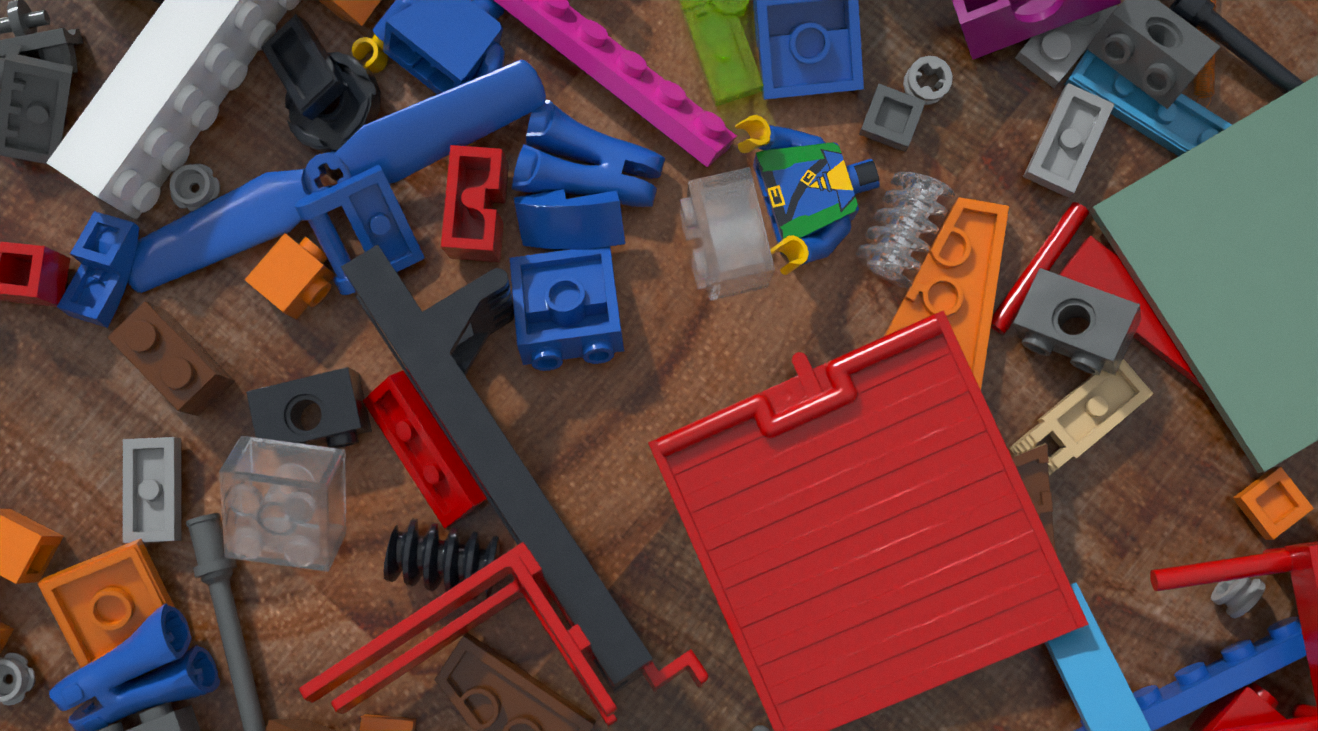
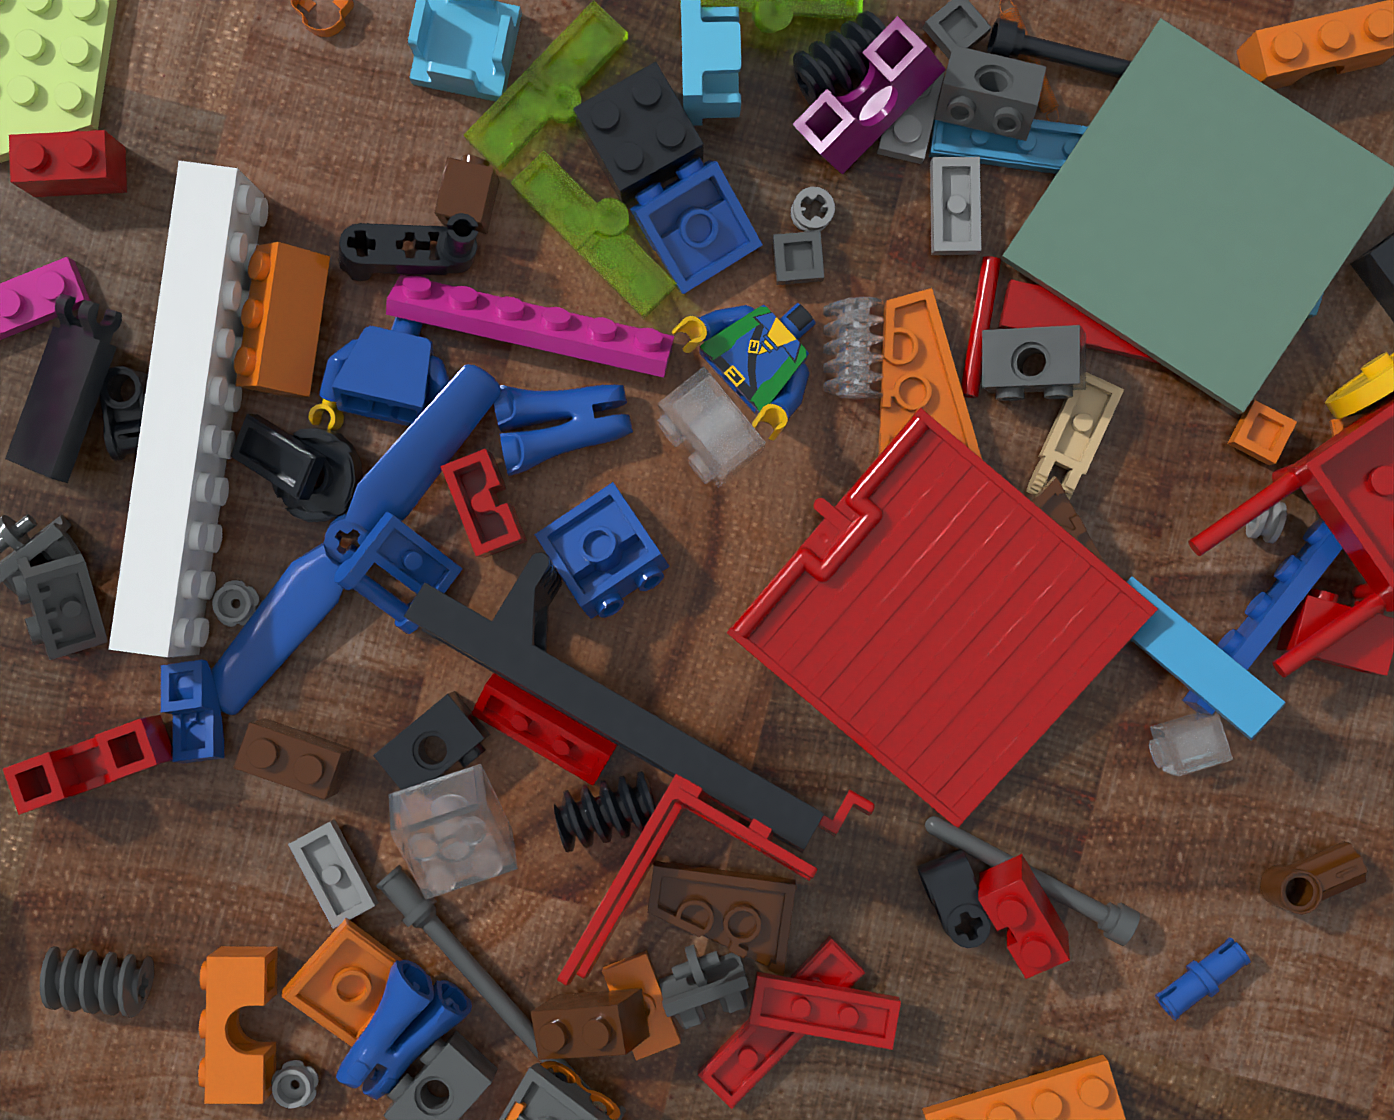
camera: 30 degrees left, 5 degrees up
(292, 276) = (359, 638): orange brick -> none
(573, 223) = (581, 476): blue slope -> none

